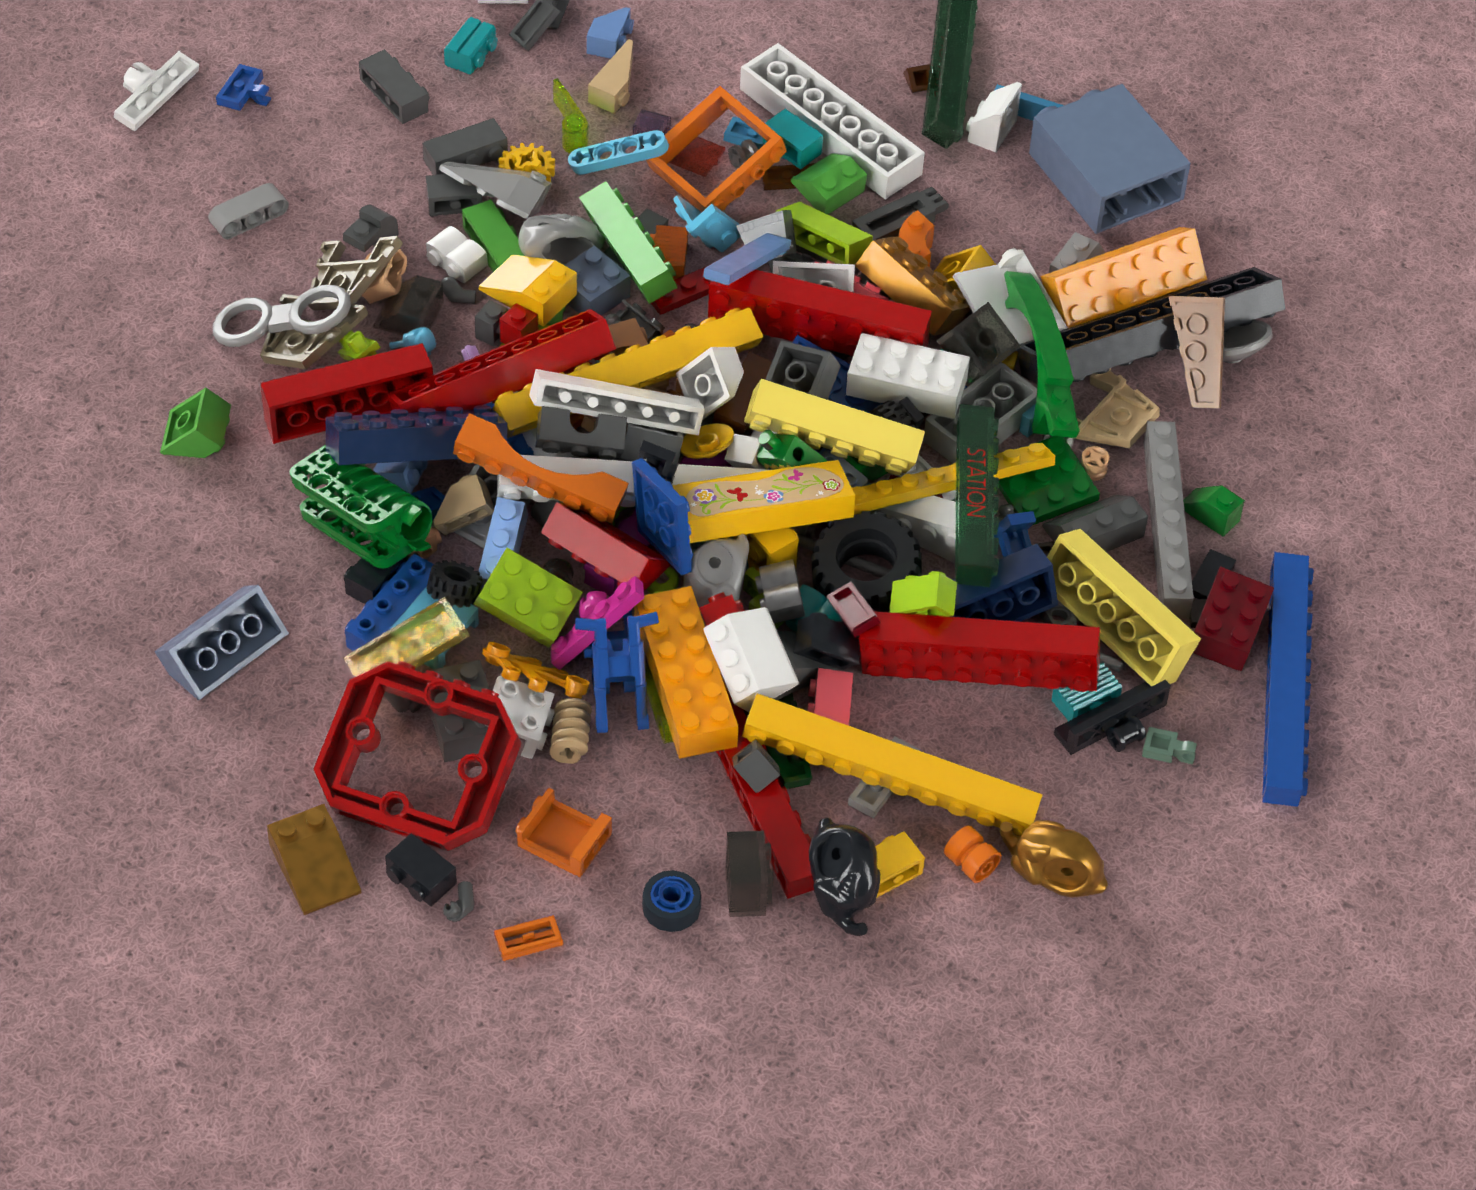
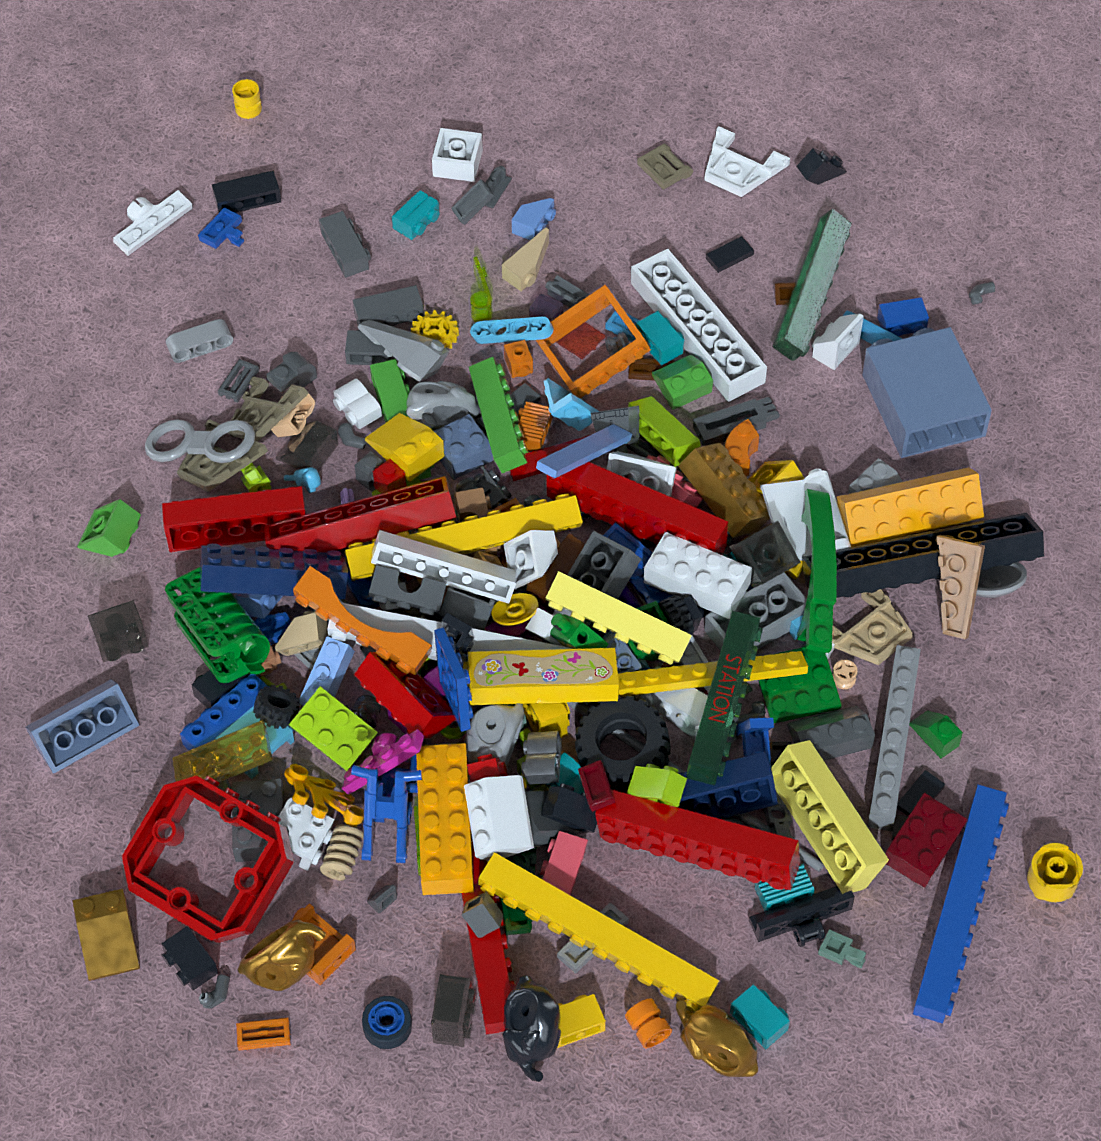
camera: 15 degrees right, 5 degrees up
(240, 531) = (118, 631): none -> clear smoke brick
(262, 44) = (247, 192): none -> black brick
(301, 264) = (245, 384): none -> dark grey tile
(534, 845) = (282, 956): none -> pearl gold piece
(630, 772) = (383, 898): none -> dark grey slope
(633, 183) = (518, 359): none -> orange brick
(668, 105) = (565, 291): none -> dark grey hinge
(845, 45) = (729, 254): none -> black tile
(1061, 84) = (903, 316): none -> blue brick
(1102, 827) = (760, 1016): none -> teal brick
(1137, 49) = (981, 289): none -> dark grey arm
(1382, 630) = (1054, 873): none -> yellow brick

